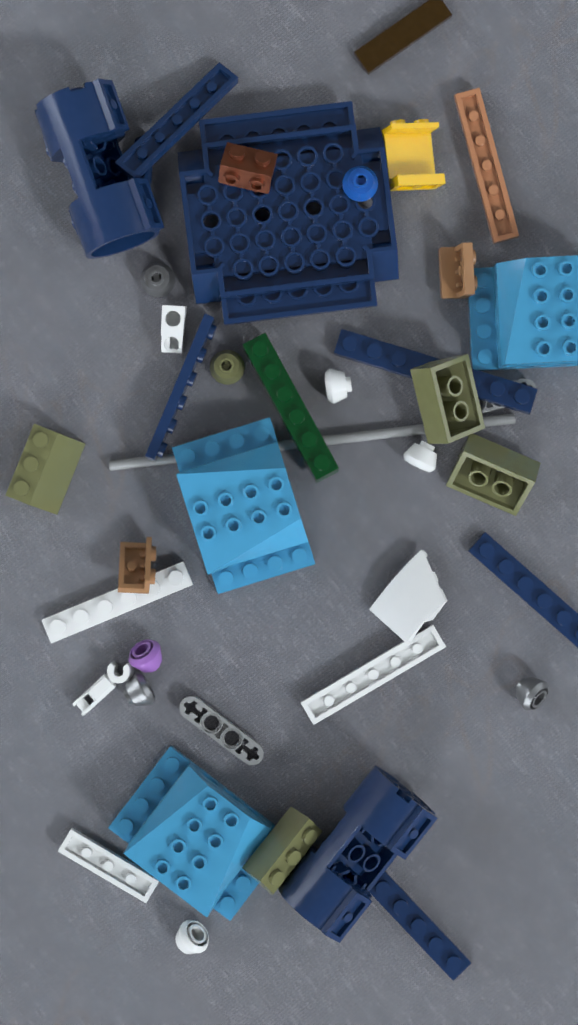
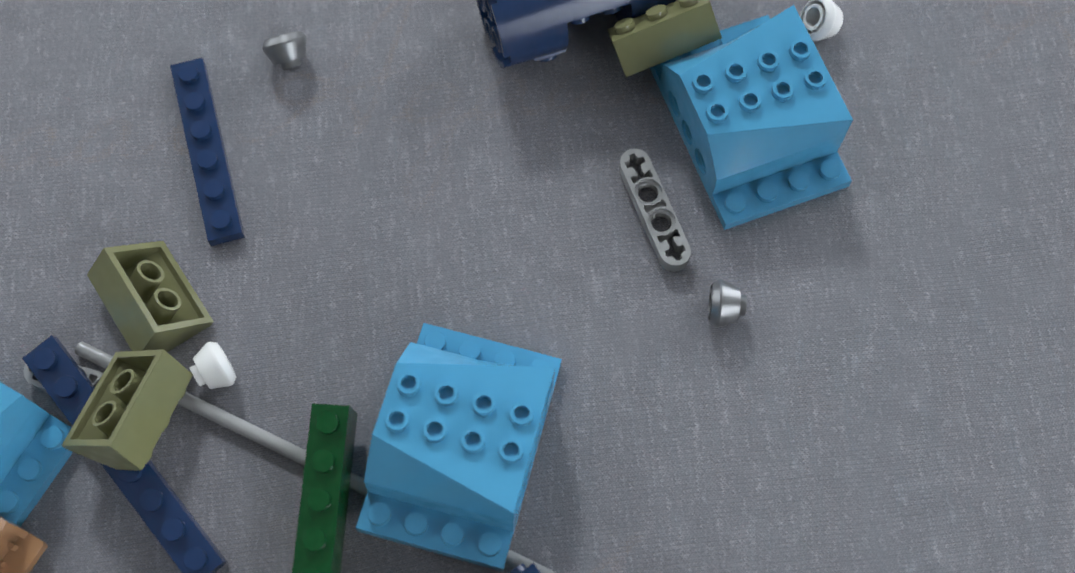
camera: 145 degrees left, 20 degrees down
(103, 686) = (766, 335): white piece -> none
(108, 865) = (879, 148): white plate -> none
(114, 604) = (691, 425): white plate -> none
(135, 567) = (639, 447): medium nougat bracket -> none
(146, 656) = (693, 339): medium lavender cone -> none
(337, 385) = (249, 517): white cone -> none
(372, 674) = (442, 166): white plate -> none
(410, 598) = (343, 217): white slope -> none

